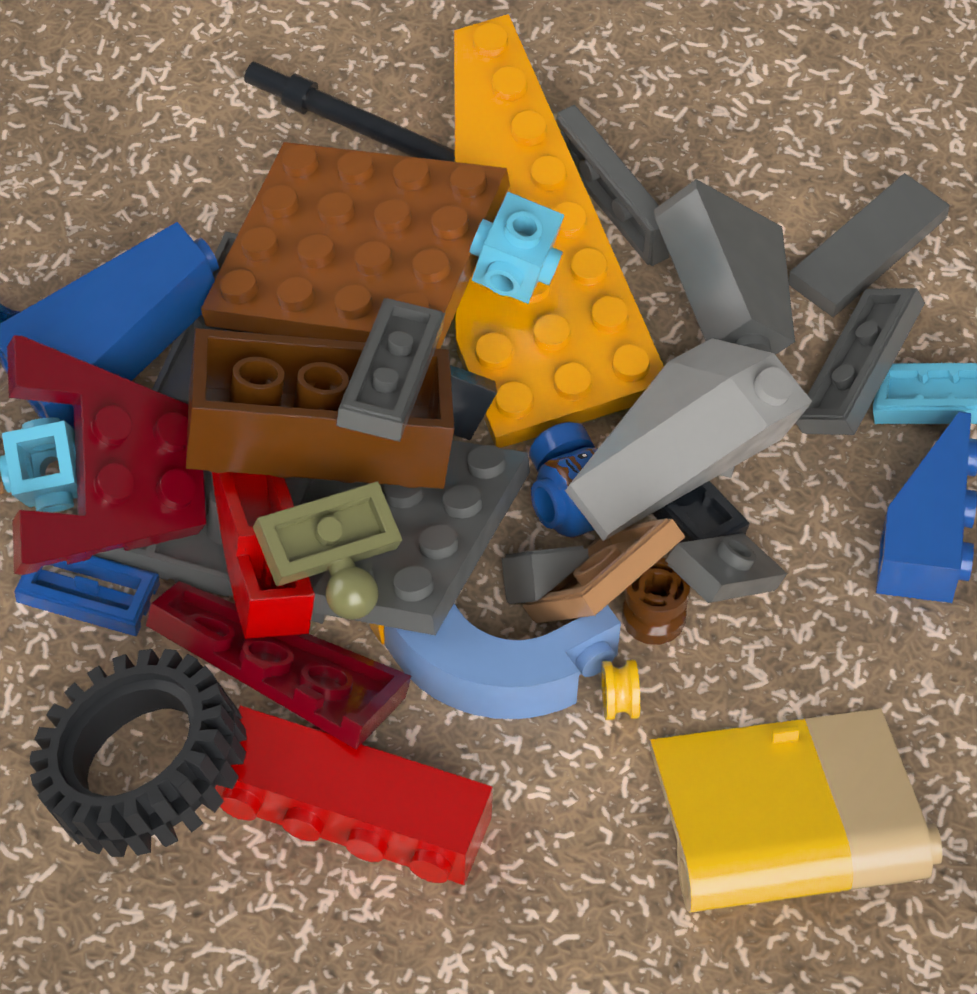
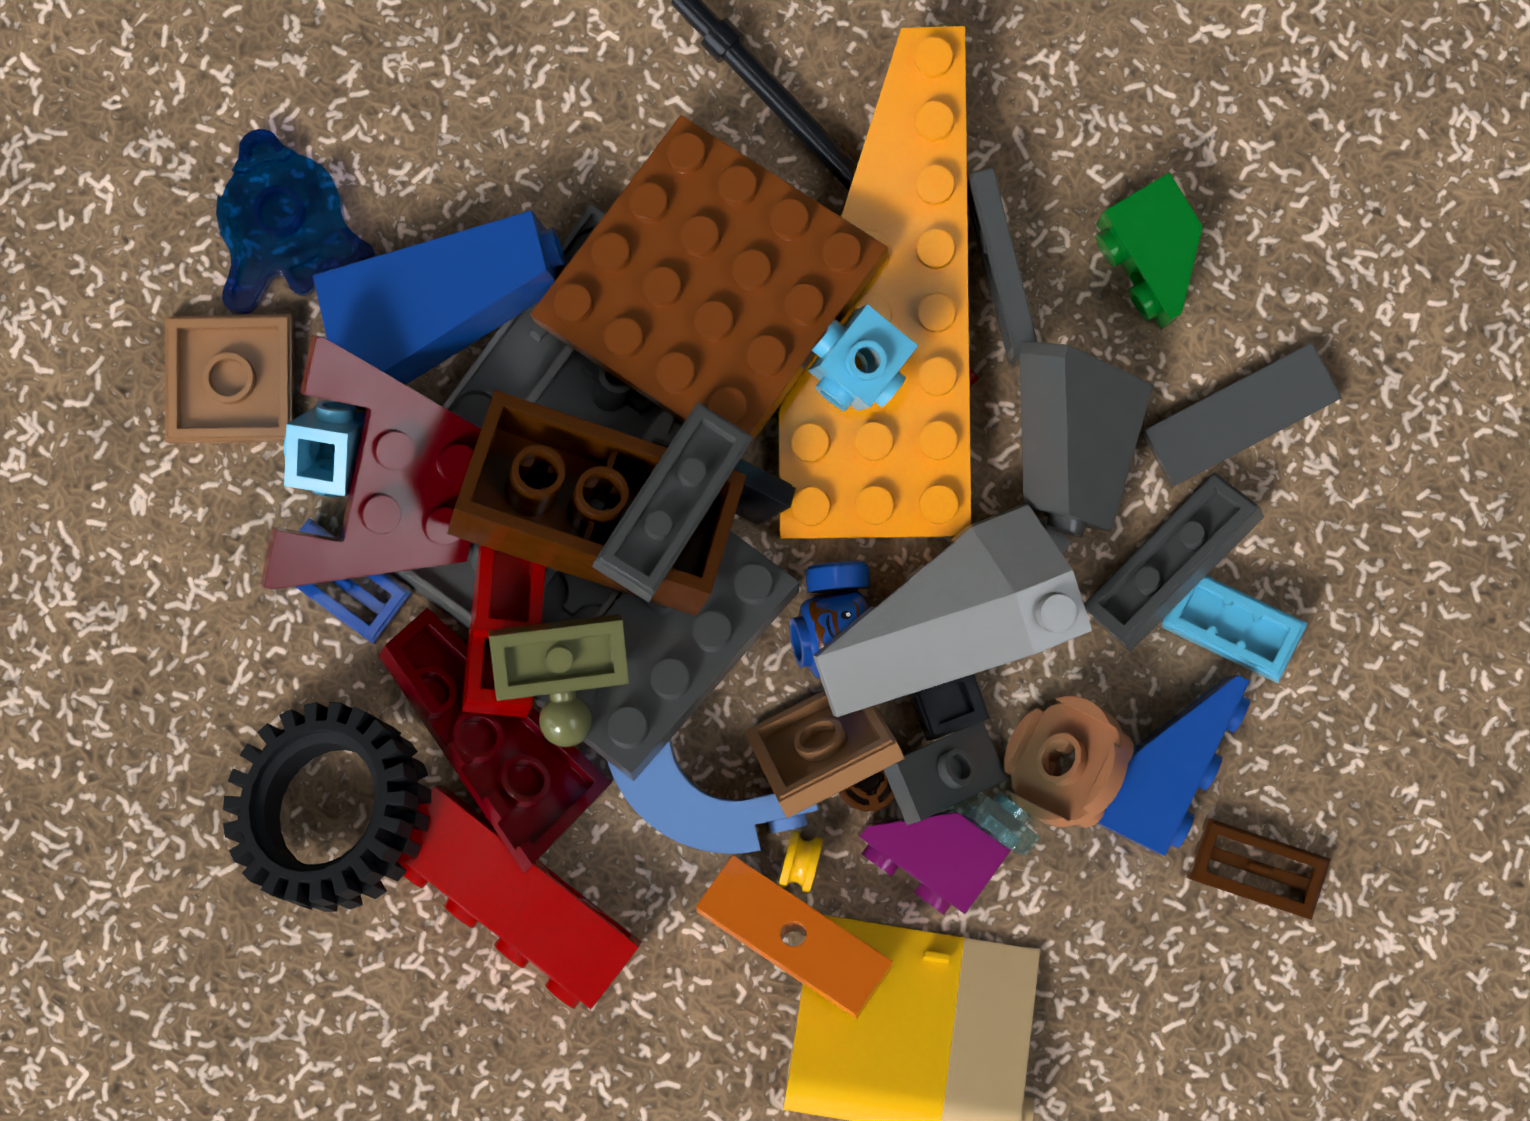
camera: 20 degrees right, 30 degrees up
(535, 573) = (771, 709): dark grey slope -> none
(641, 745) = (761, 916): none -> orange tile
(735, 135) = (1156, 244): none -> green slope
(744, 642) = (941, 852): none -> magenta slope
(796, 585) = (1002, 821): none -> clear light blue plate
(833, 550) = (1093, 779): none -> nougat plate

